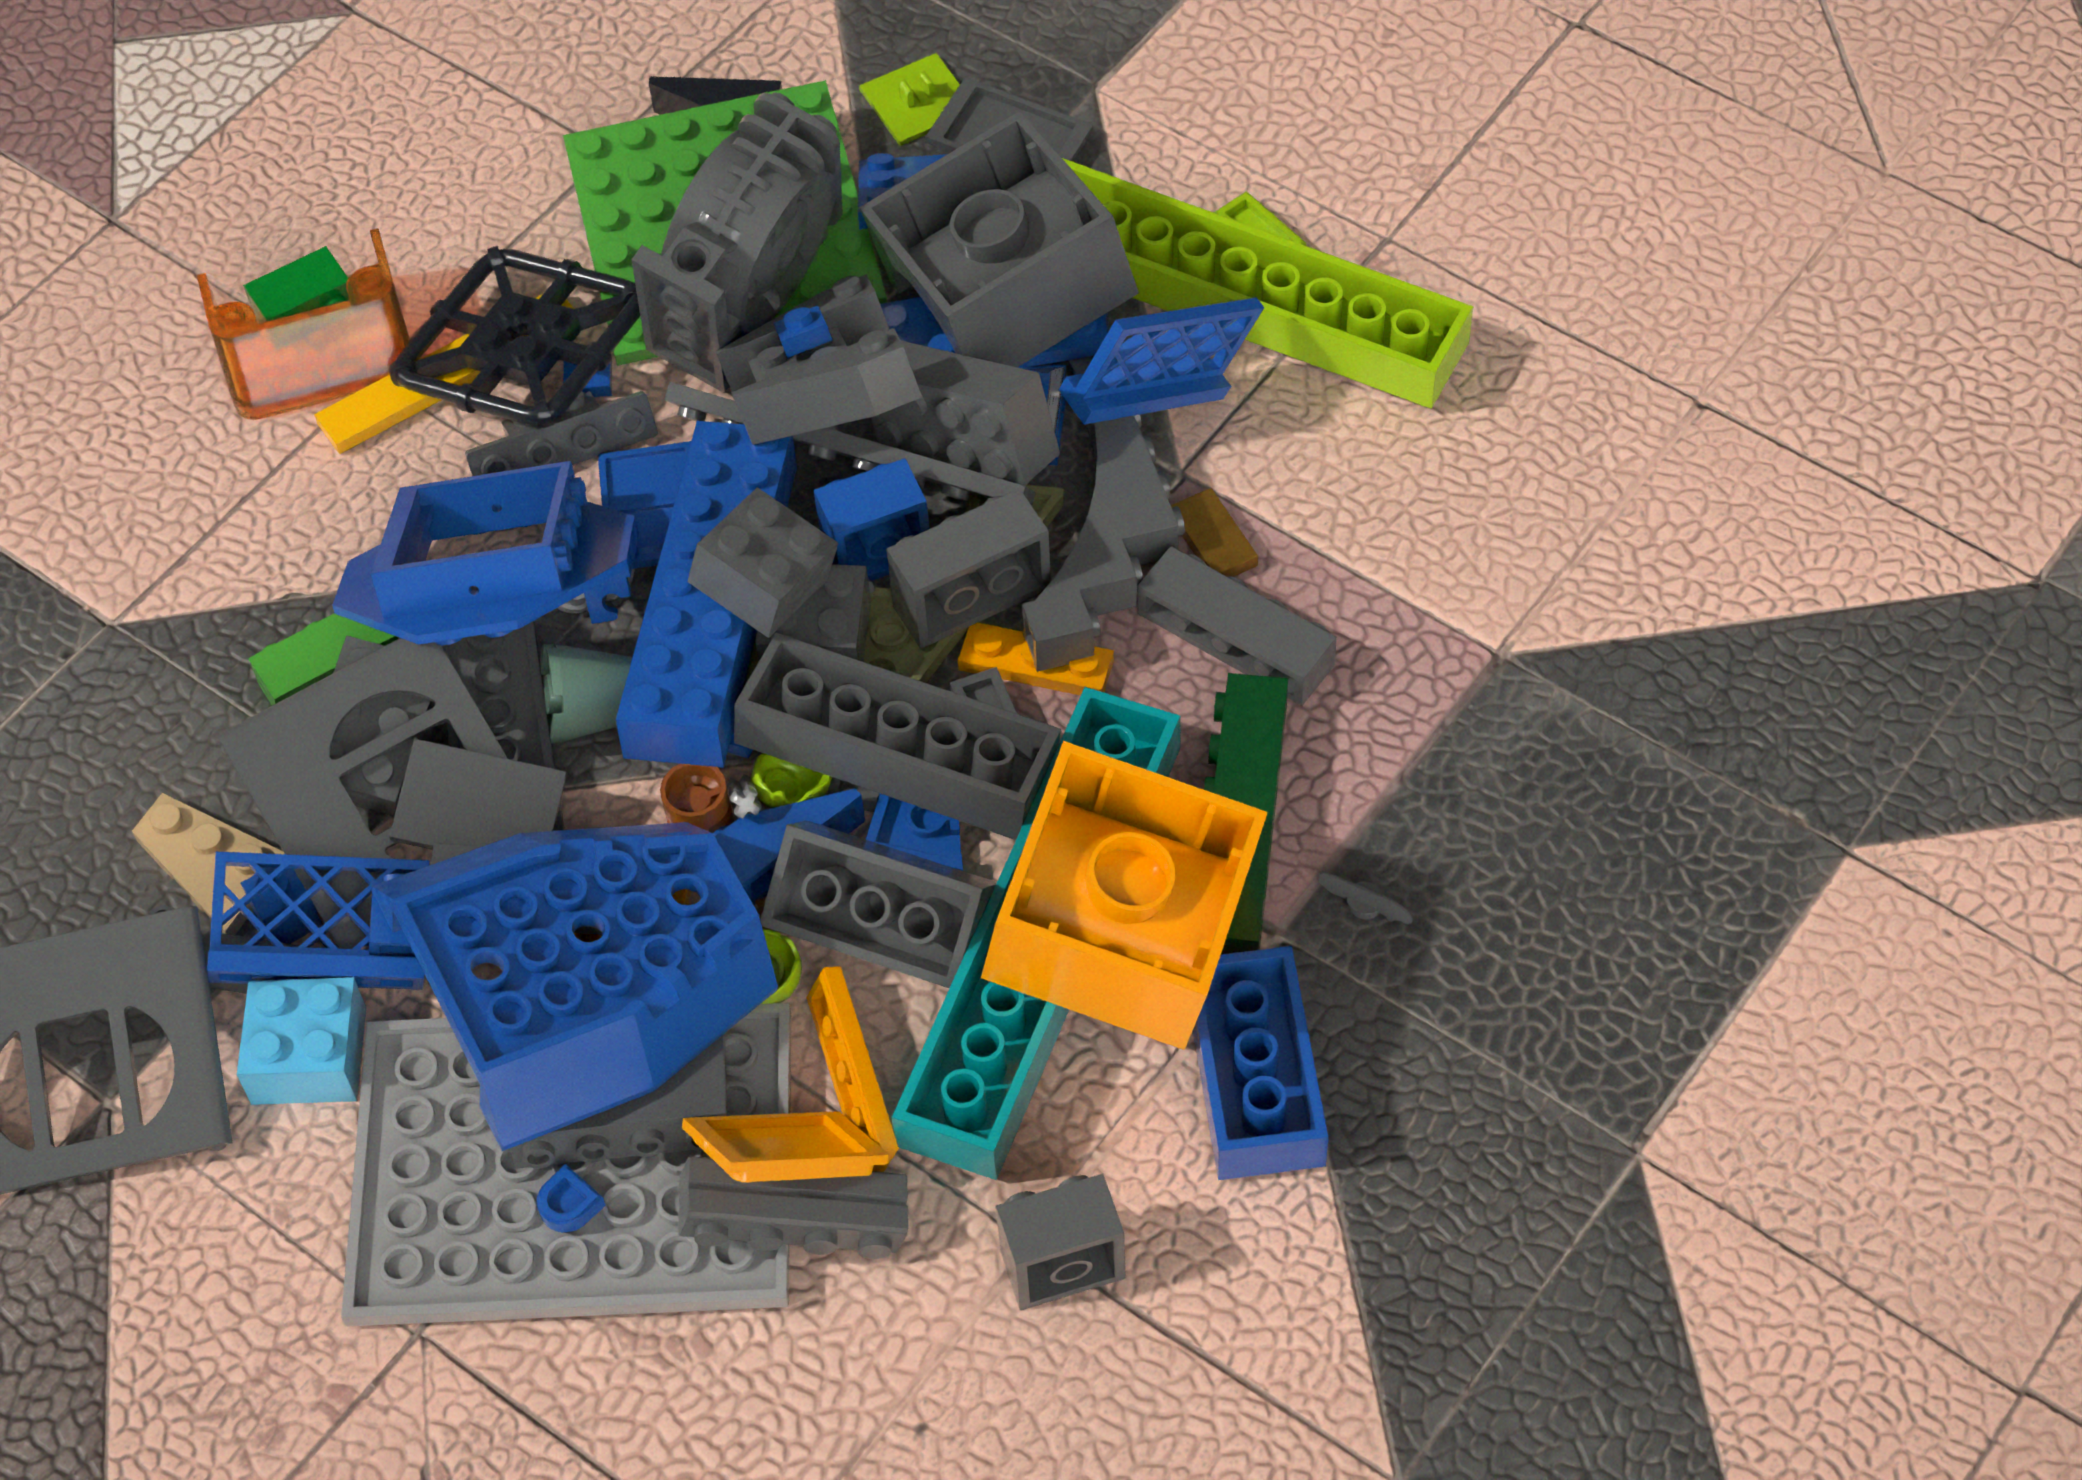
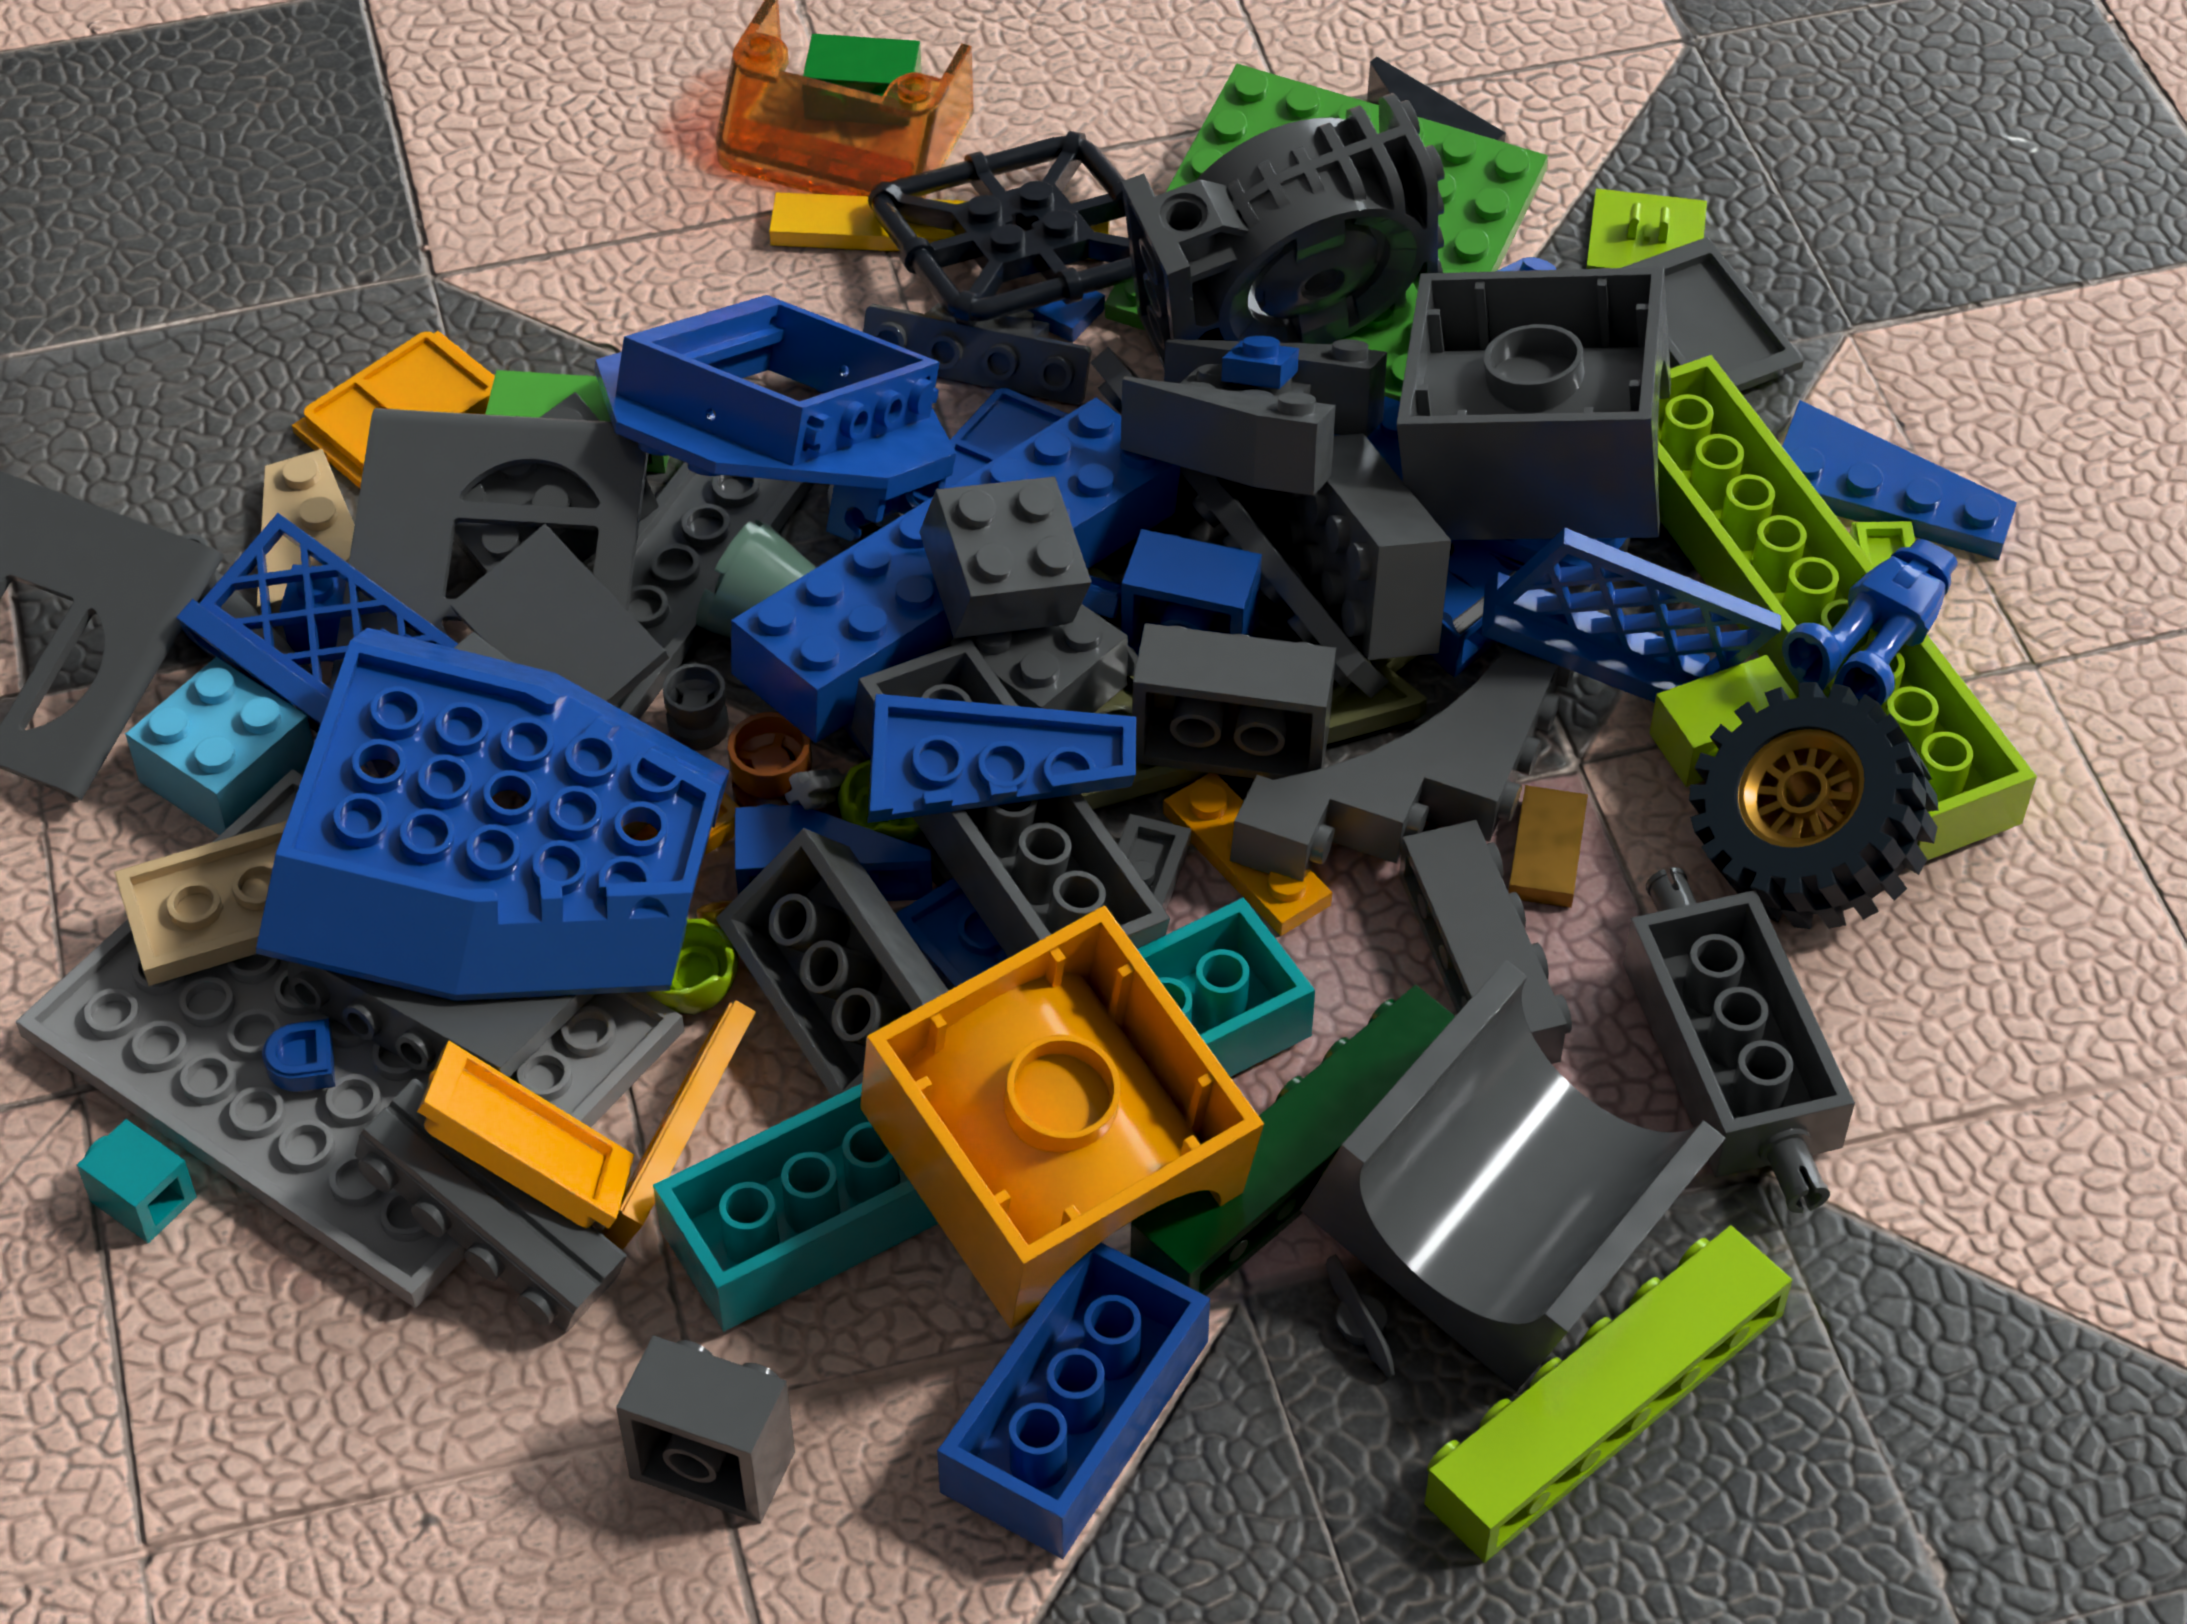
camera: 35 degrees right, 5 degrees down
(177, 727) = (418, 376): none -> light orange piece
(413, 1138) = (199, 903): none -> tan plate
(527, 1359) = (136, 1180): none -> teal brick
(601, 797) = (696, 706): none -> dark grey wheel
(862, 702) = (979, 755): none -> blue wing
(1217, 174) = (1881, 482): none -> blue wing
(1257, 388) = (1693, 711): none -> lime brick
(1304, 247) = (1893, 599): none -> blue piece
(1388, 454) = (1857, 765): none -> black wheel
(1401, 763) = (1499, 1186): none -> dark grey piece
(1433, 578) = (1738, 1035): none -> dark grey brick
(1544, 844) = (1605, 1391): none -> lime brick

